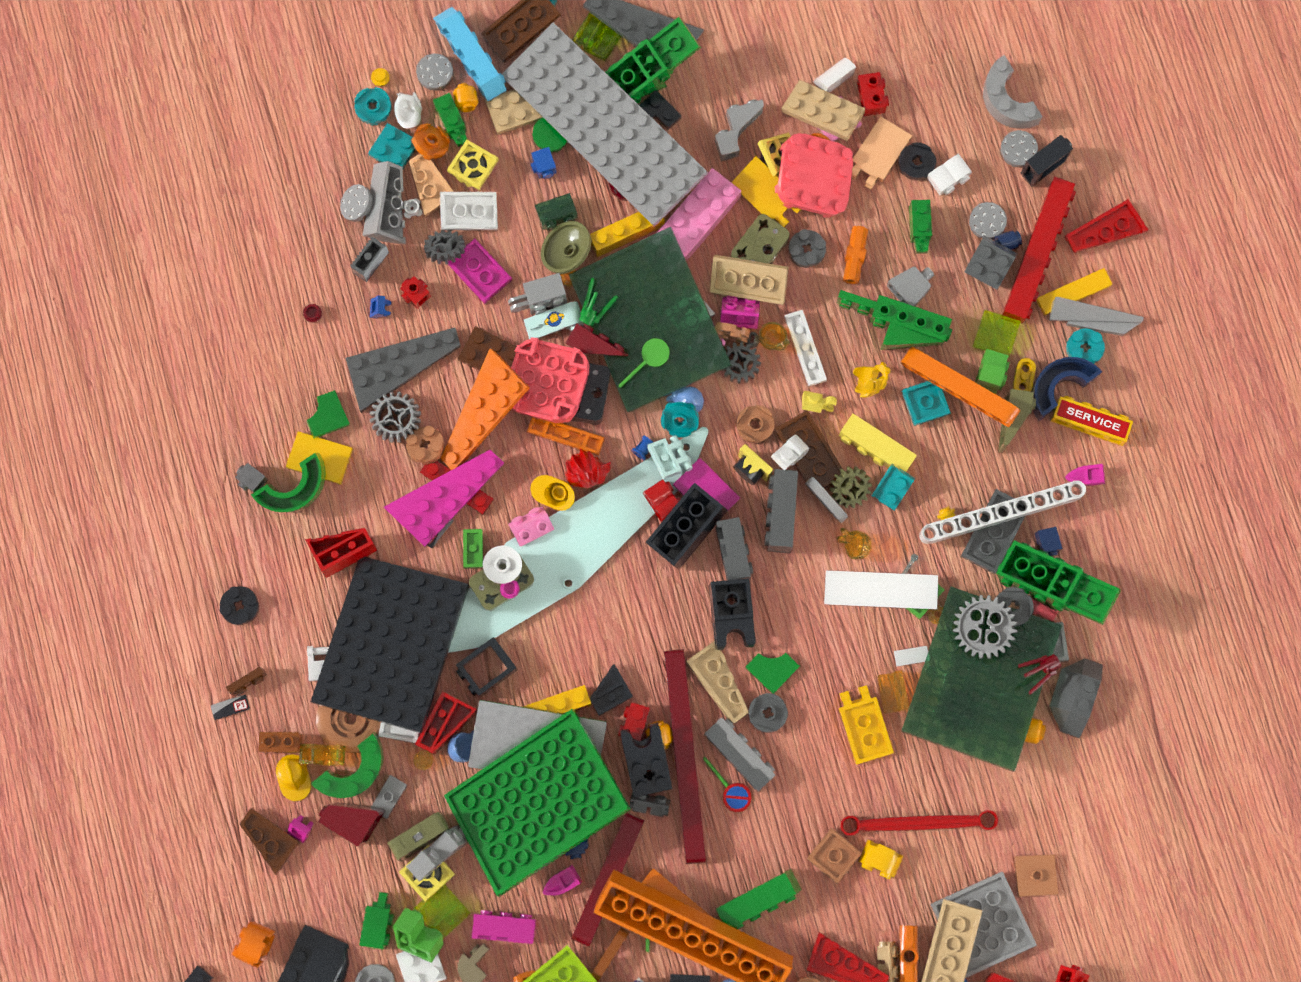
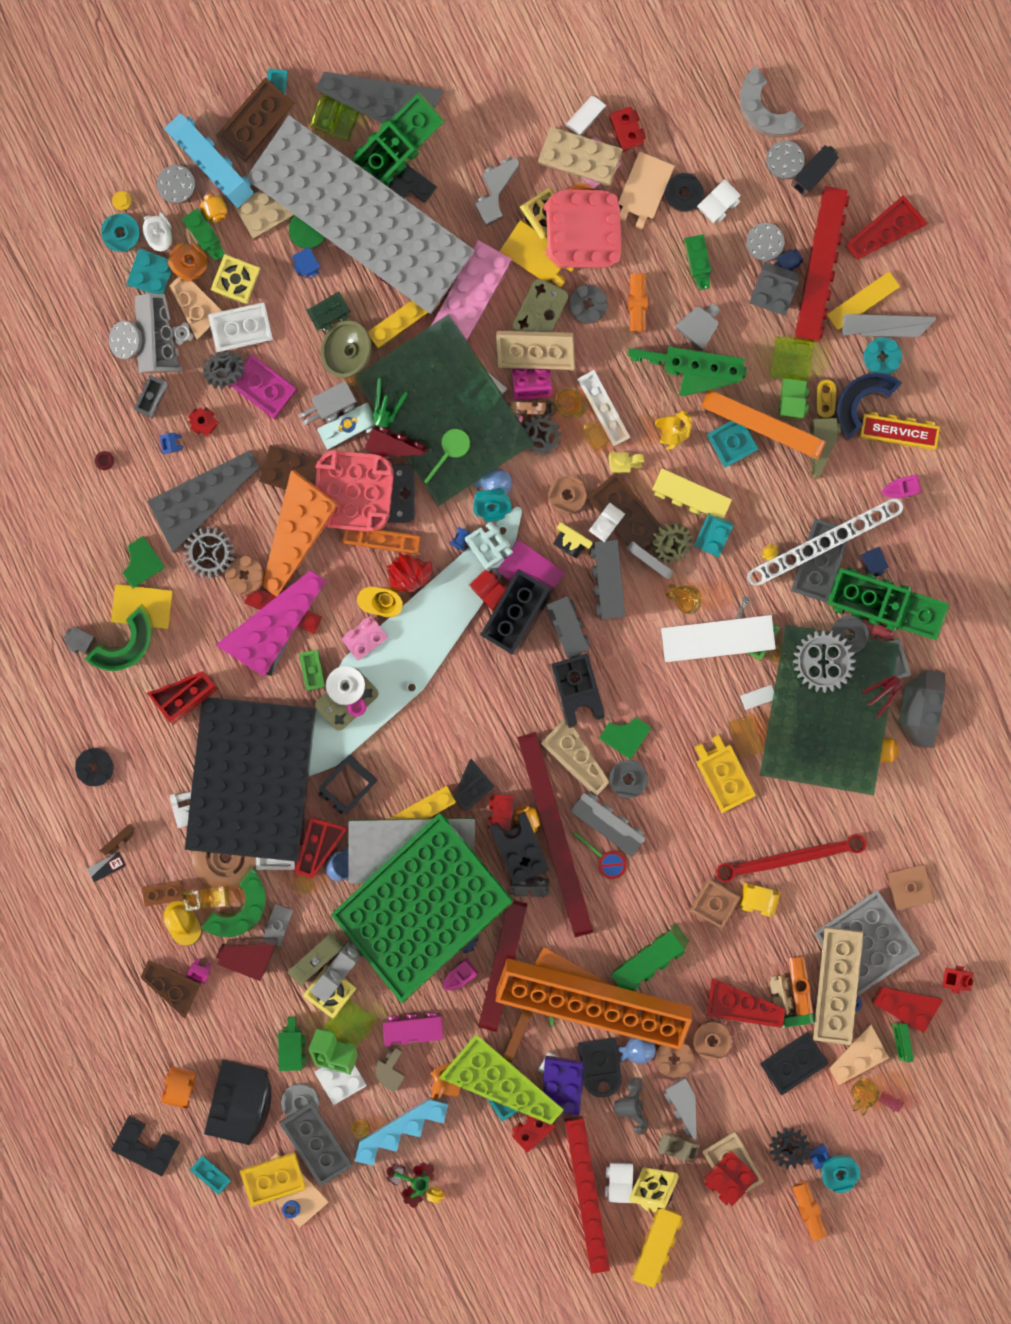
camera: 10 degrees left, 10 degrees up
(792, 371) = (595, 436): none -> clear yellow brick

